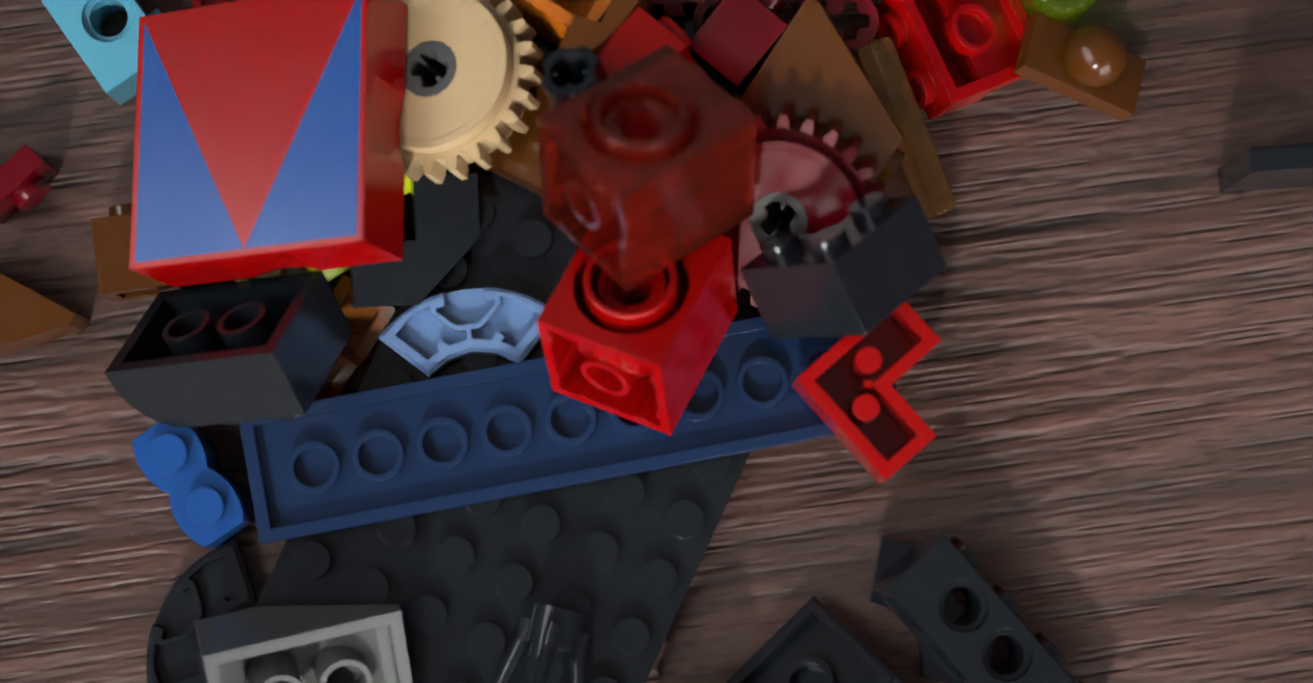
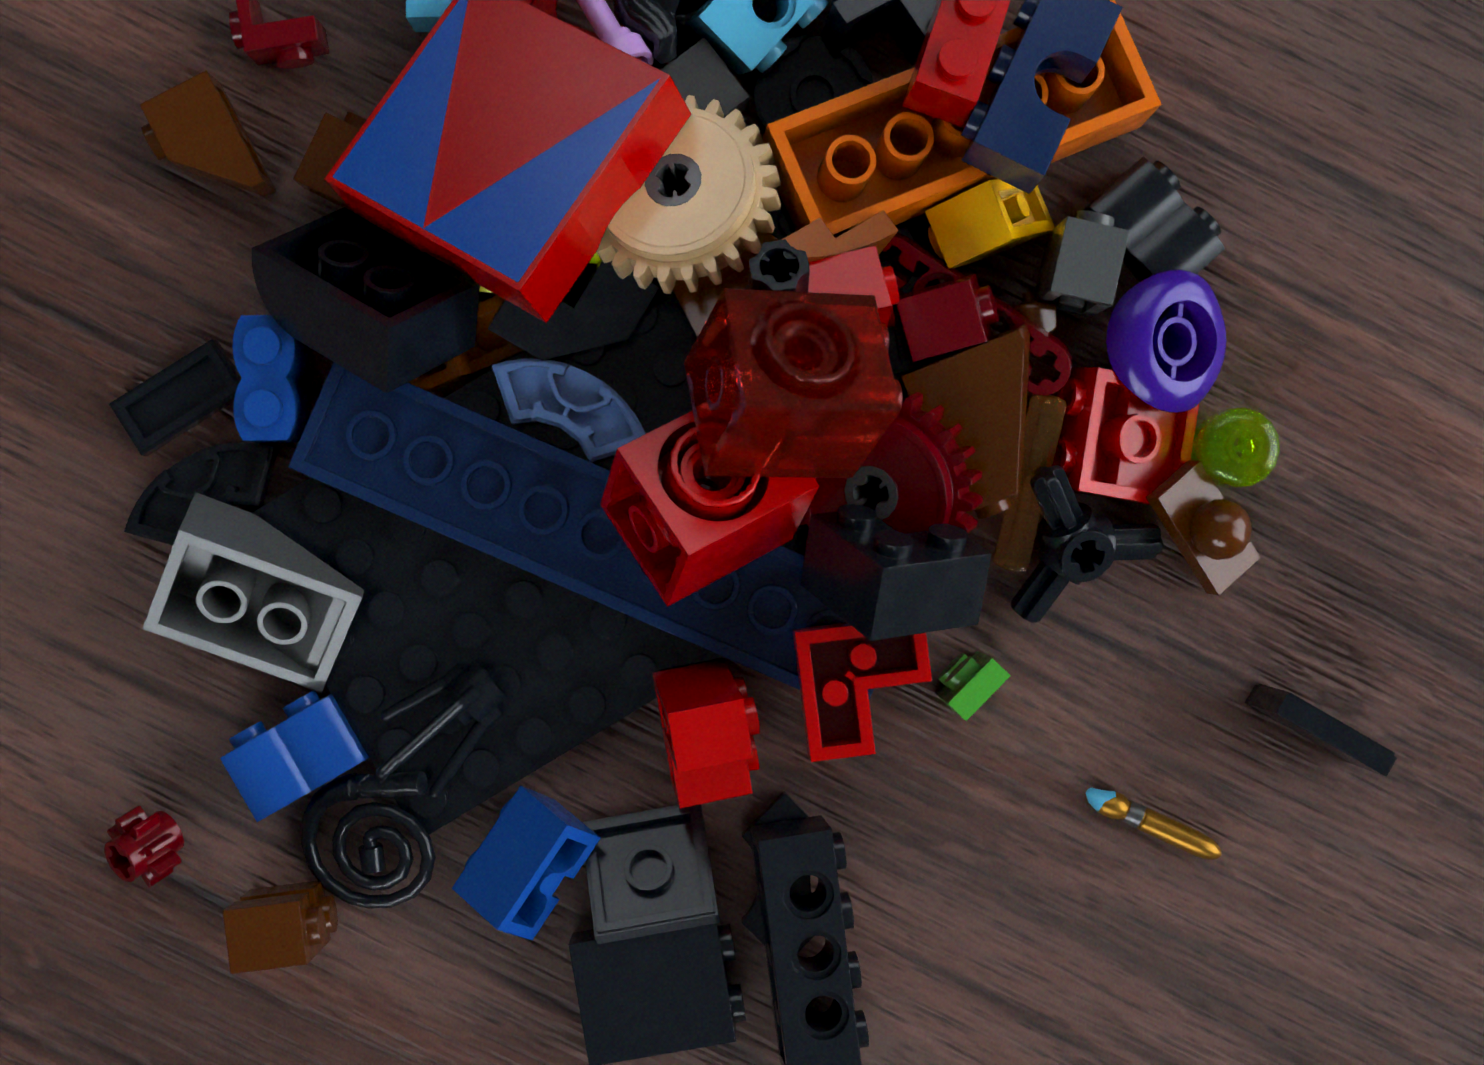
camera: 30 degrees right, 5 degrees up
(122, 555) = (177, 397): none -> black tile
(779, 527) = (707, 732): none -> red brick
(975, 330) = (970, 682): none -> bright green plate
(981, 153) = (1075, 544): none -> black bush
(1174, 354) = (1117, 806): none -> pearl gold piece

